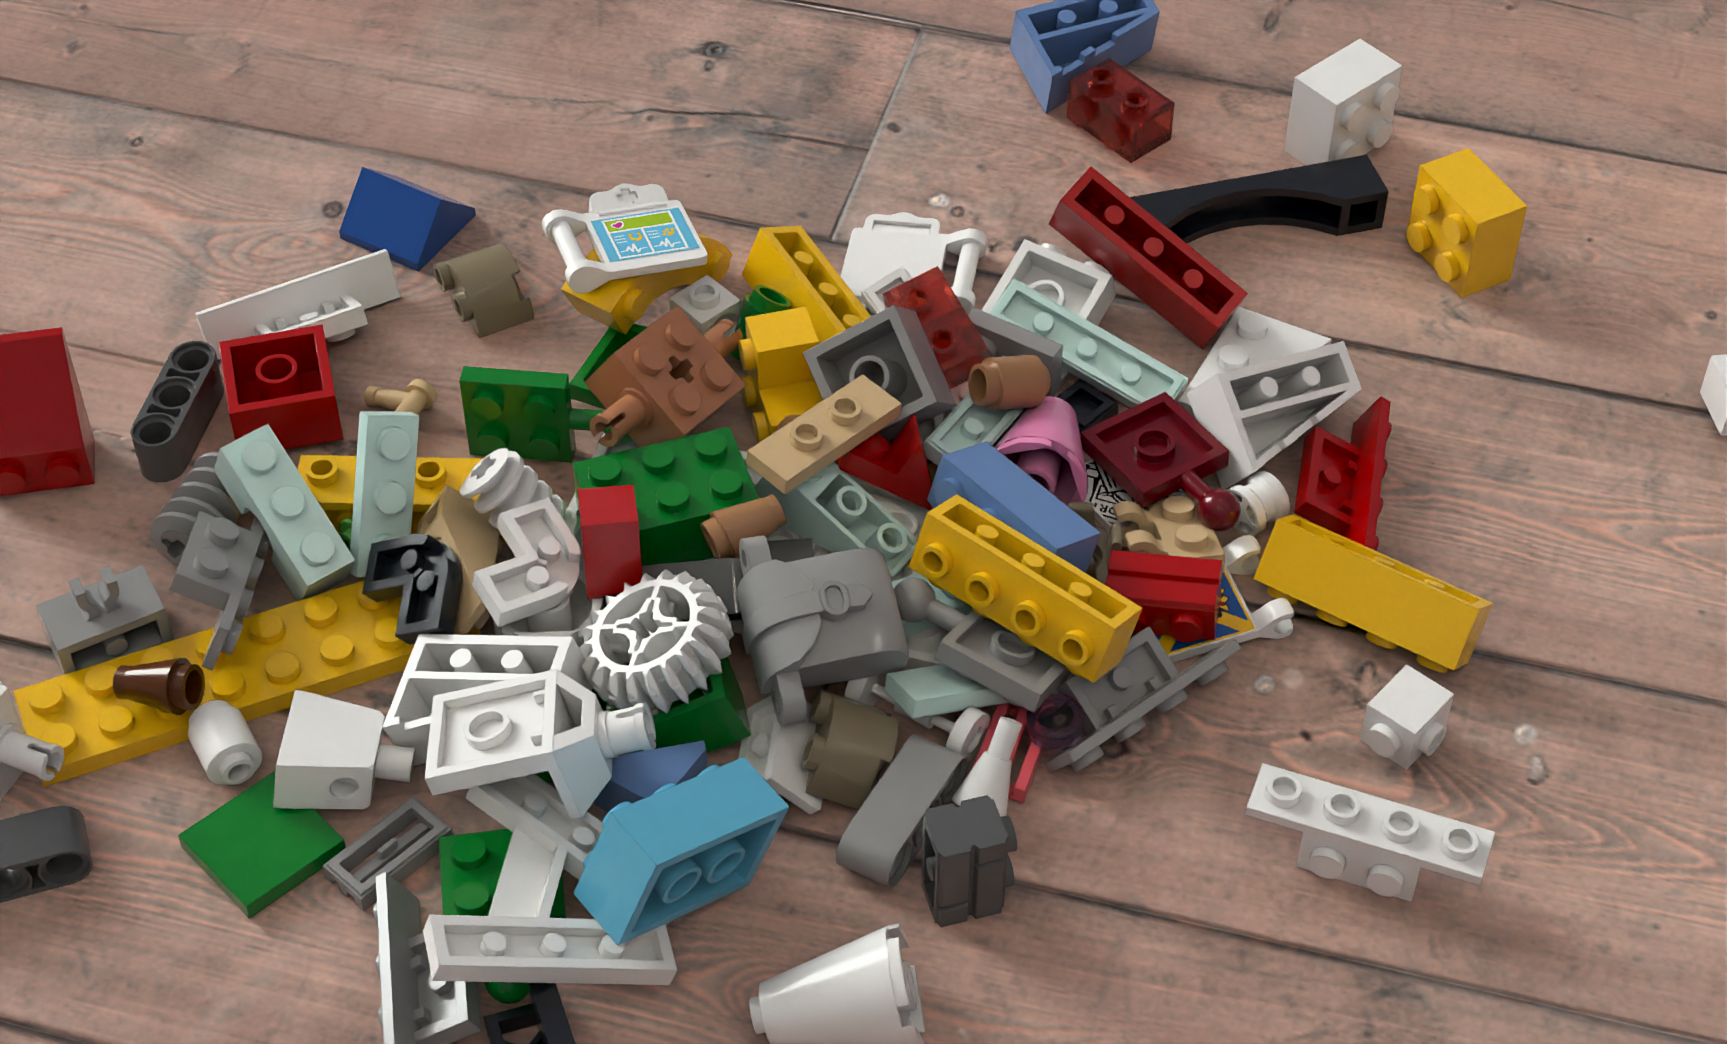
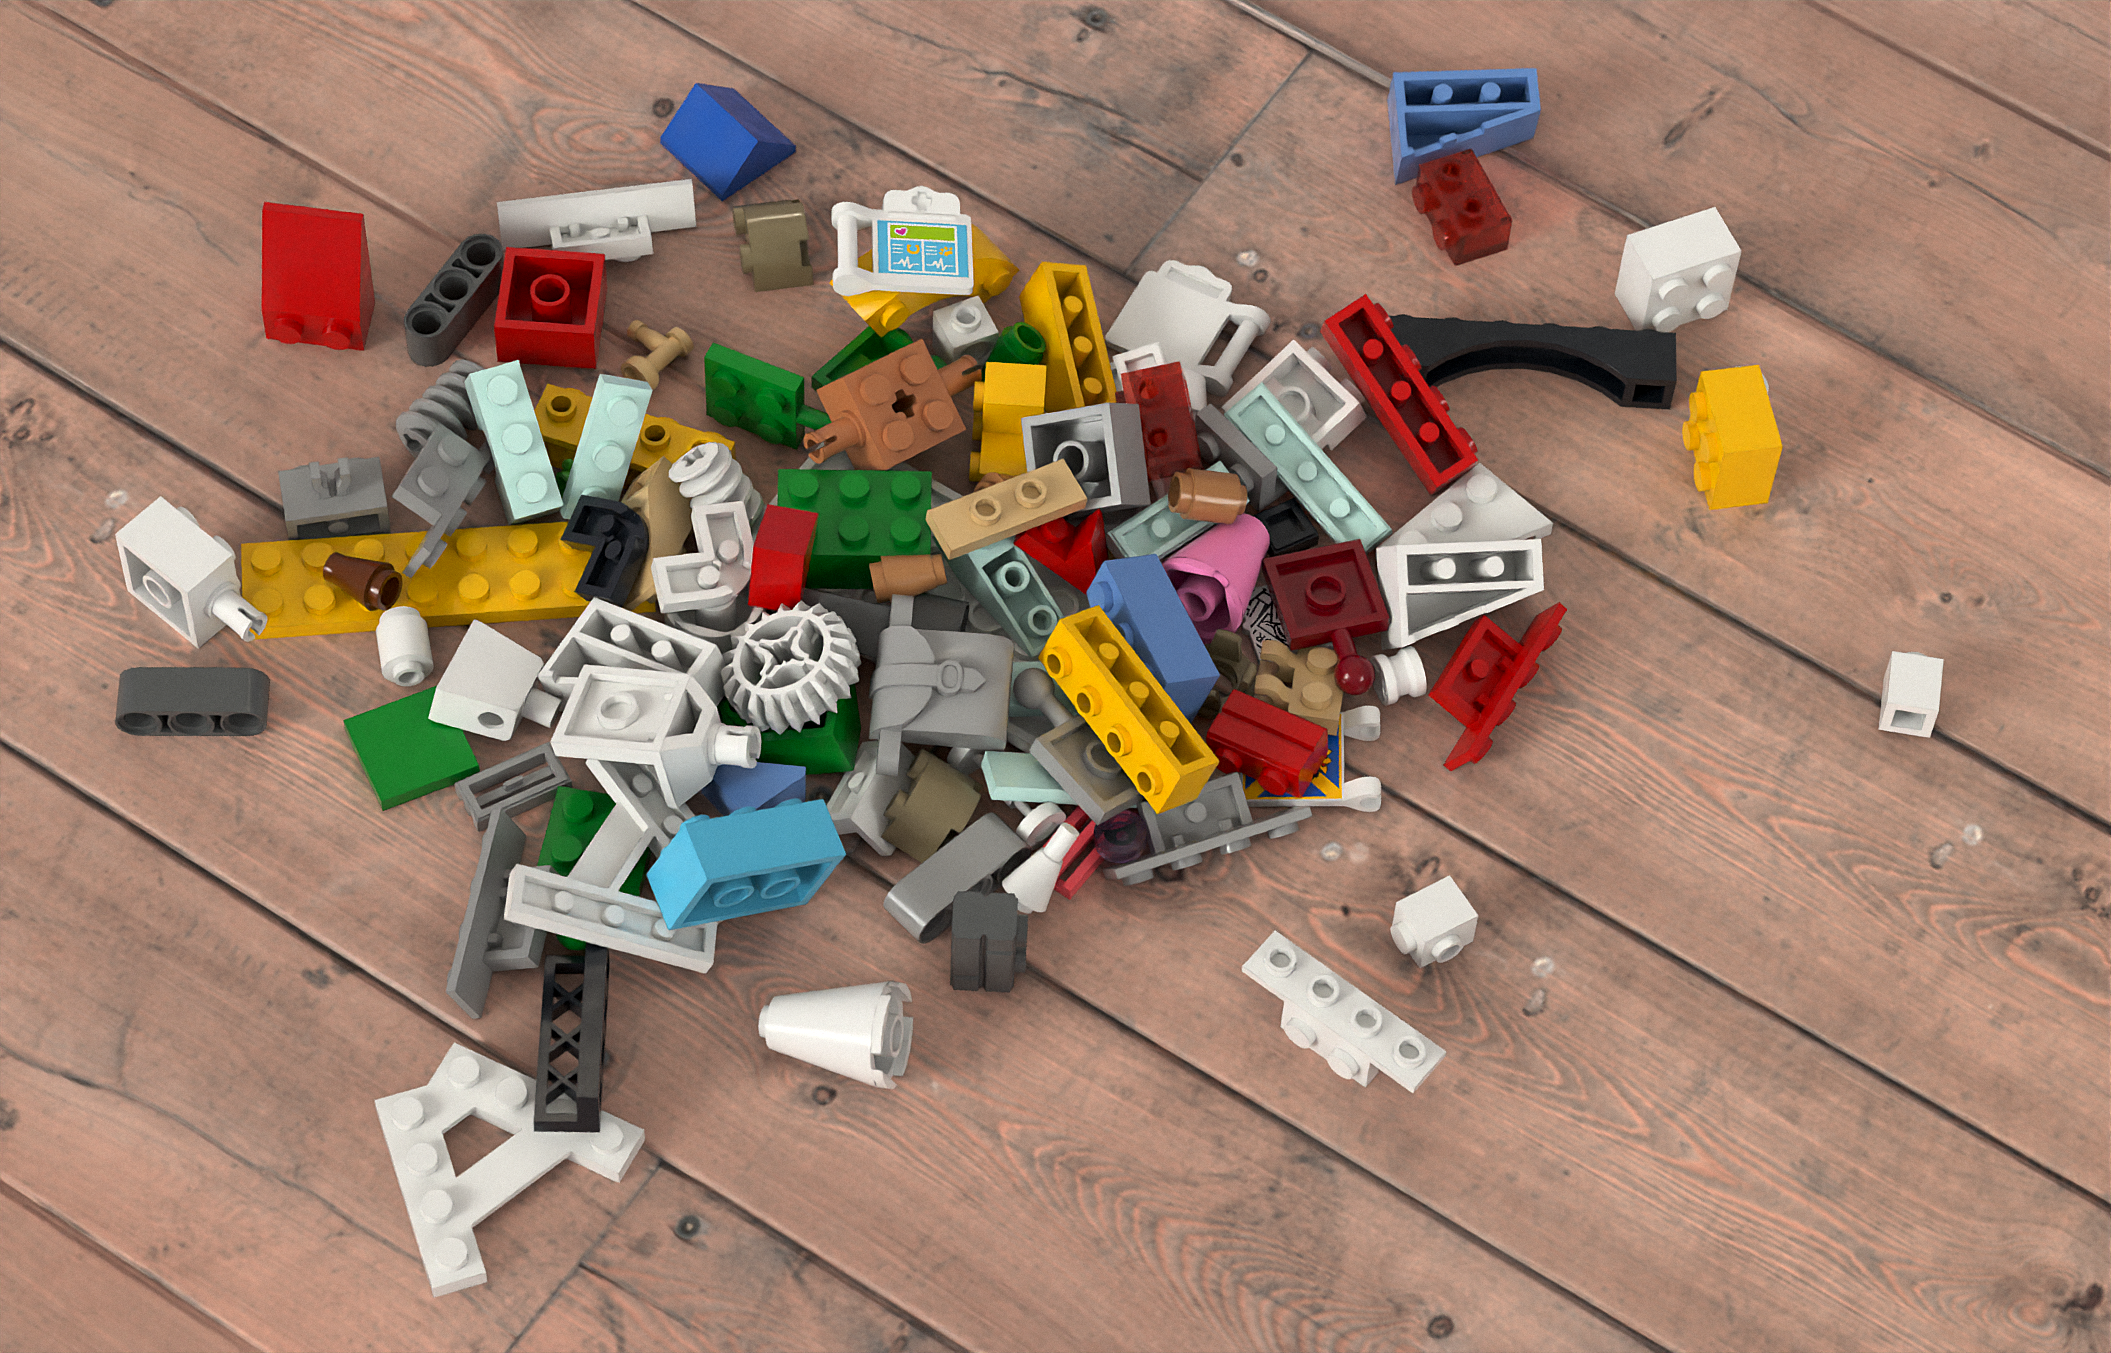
camera: 15 degrees right, 10 degrees up
(1373, 593) = (1457, 796): yellow brick -> none

